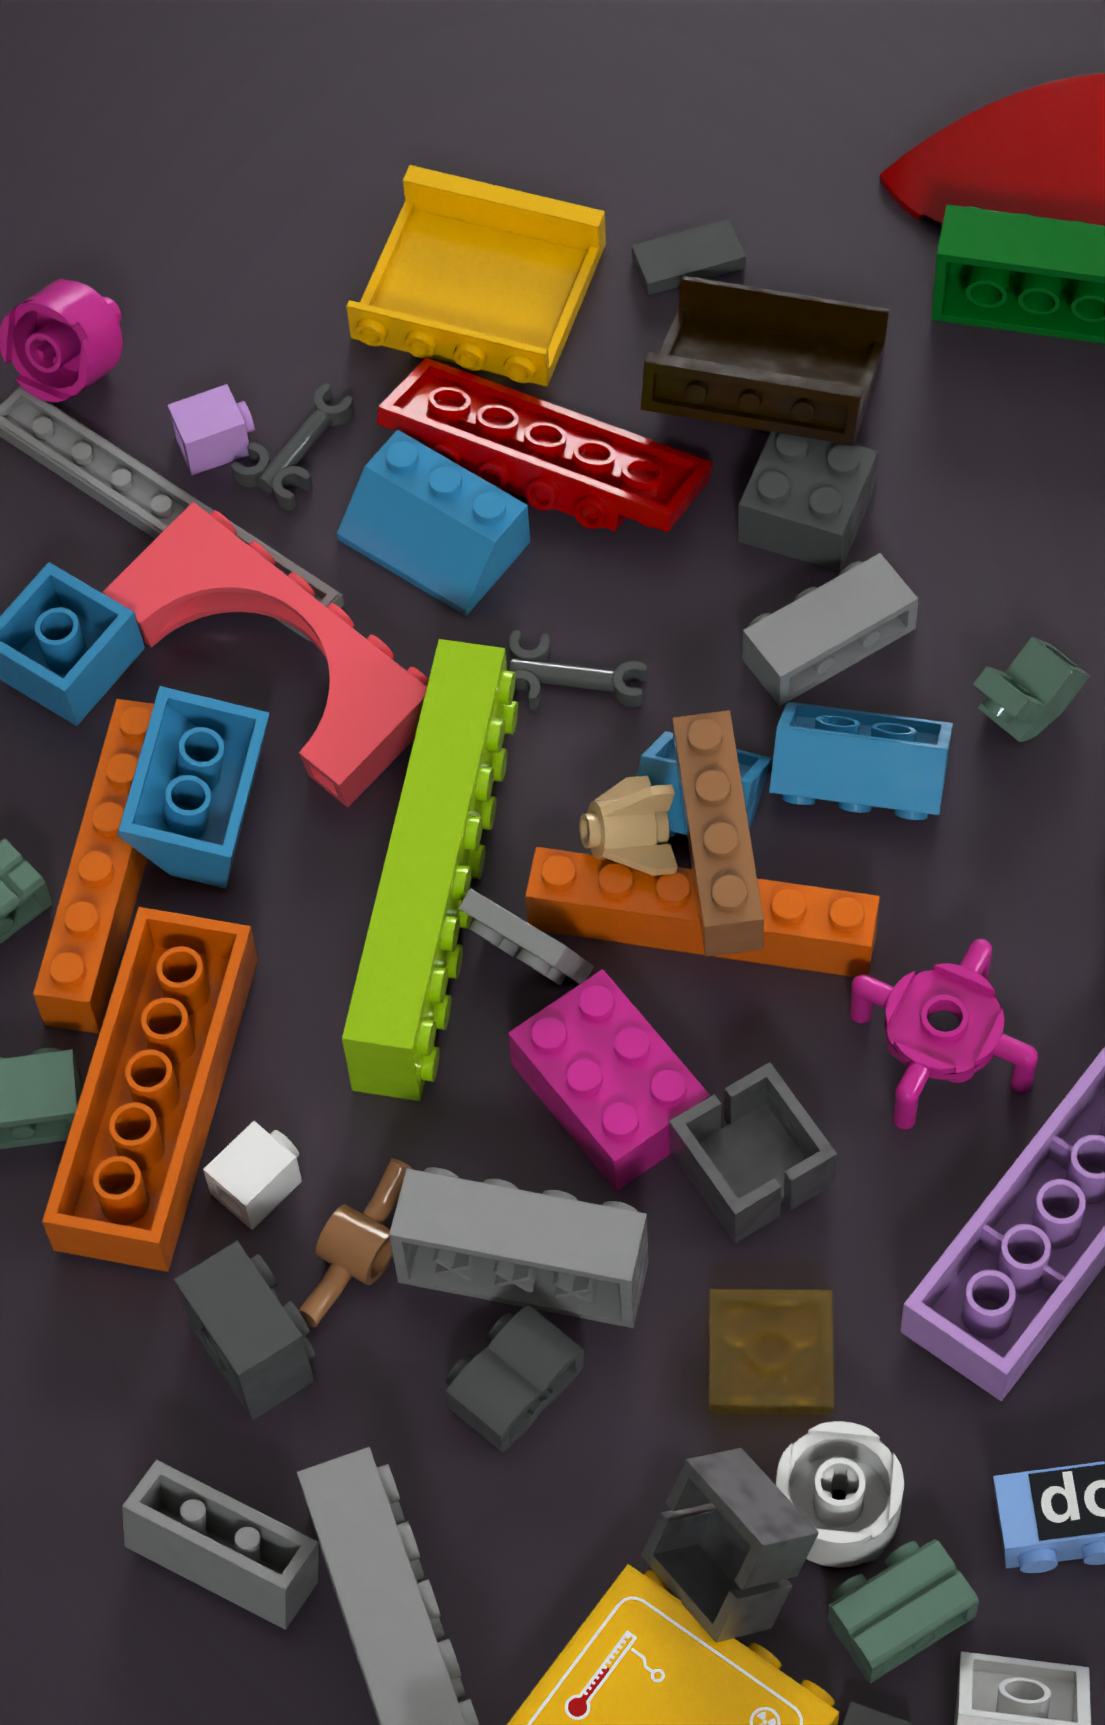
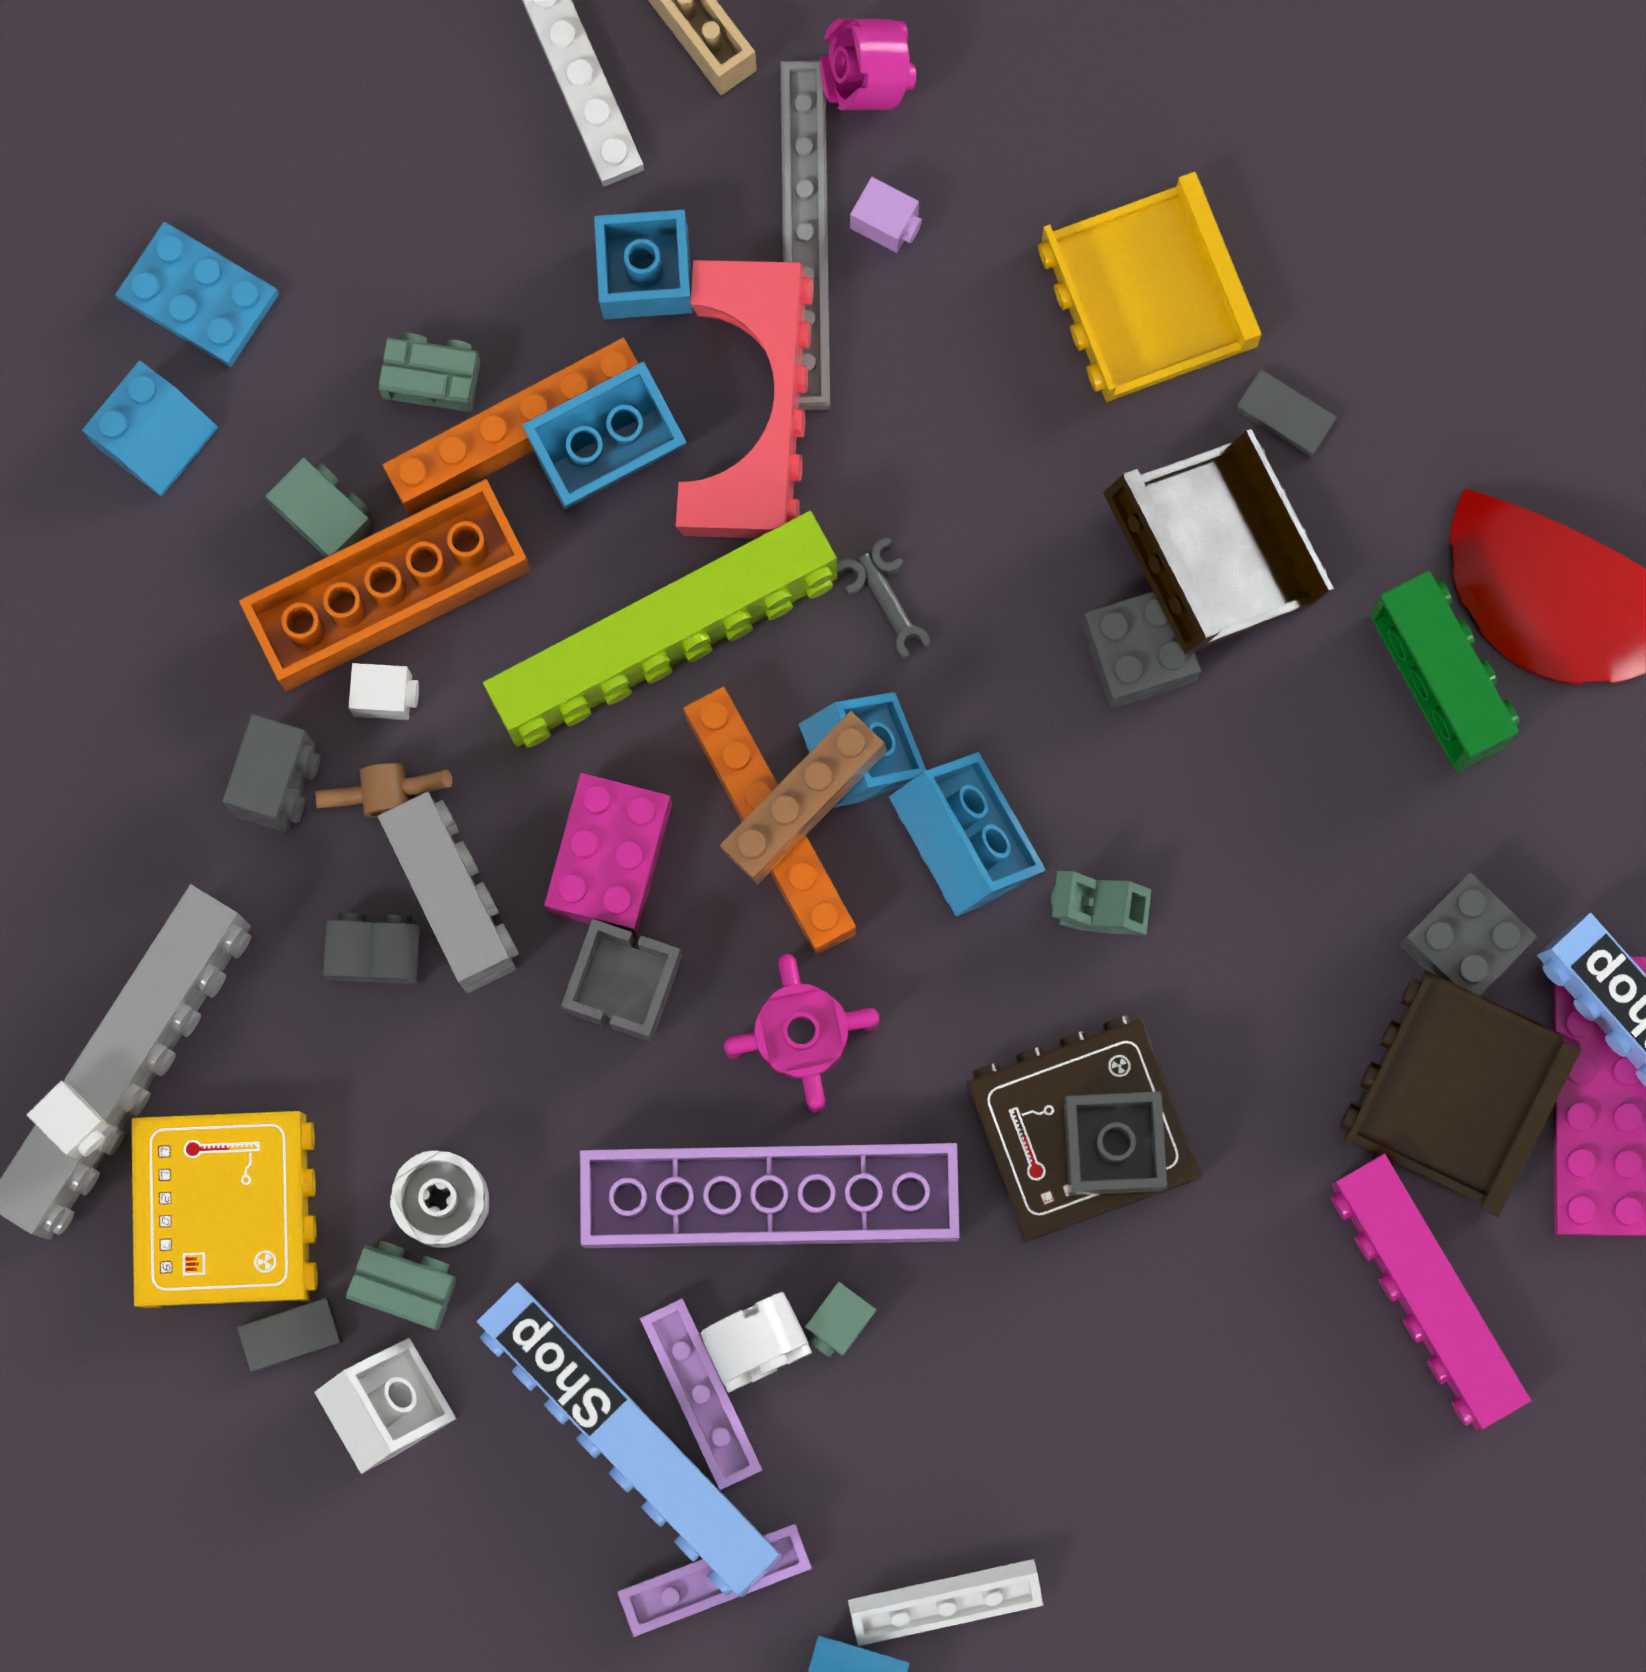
camera: 50 degrees right, 20 degrees up
(220, 1544) = (135, 866): light grey brick -> none
(281, 471) = (891, 283): dark grey bar -> none
(434, 523) = (926, 421): dark azure slope -> none
(511, 933) = (657, 729): light grey plate -> none
(545, 450) = (1040, 444): red plate -> none
(631, 826) = (775, 735): tan brick -> none
(729, 1544) = (349, 1162): flat silver piece -> none
(771, 1351) = (507, 1089): clear yellow plate -> none
(829, 628) = (1049, 738): light grey brick -> none

